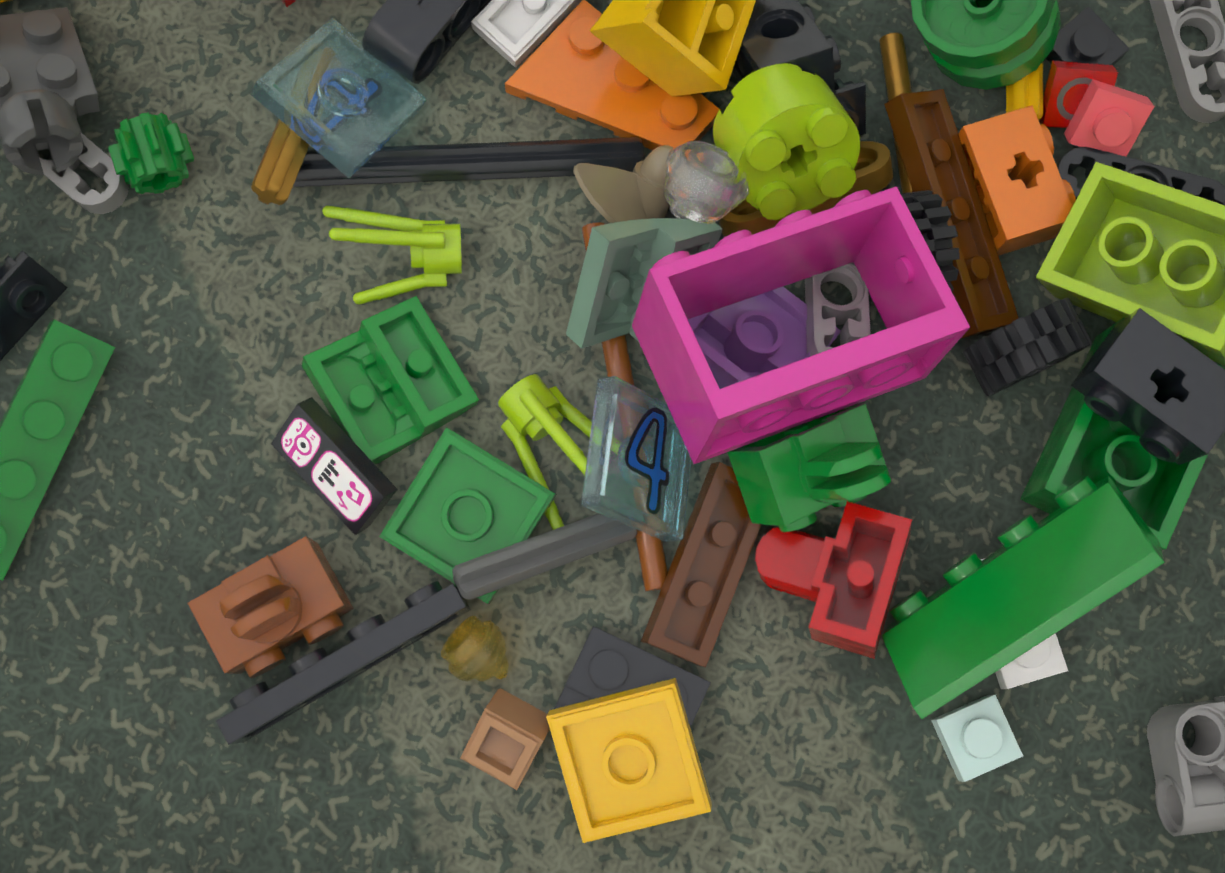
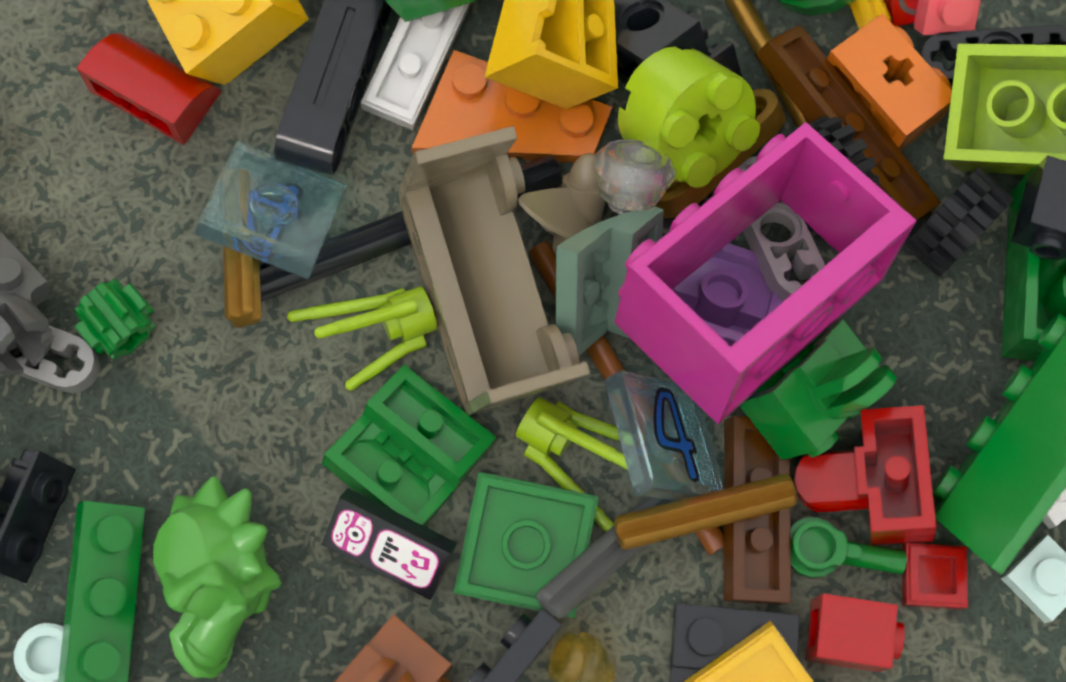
camera: 20 degrees left, 5 degrees down
(148, 436) = (213, 573): none -> bright green head
(518, 225) = (478, 273): none -> dark tan windscreen
(651, 546) = (705, 511): none -> pearl gold axle
(758, 624) = (821, 548): none -> green plate
(758, 721) = (854, 633): none -> brick
(863, 693) = (935, 576): none -> red tile

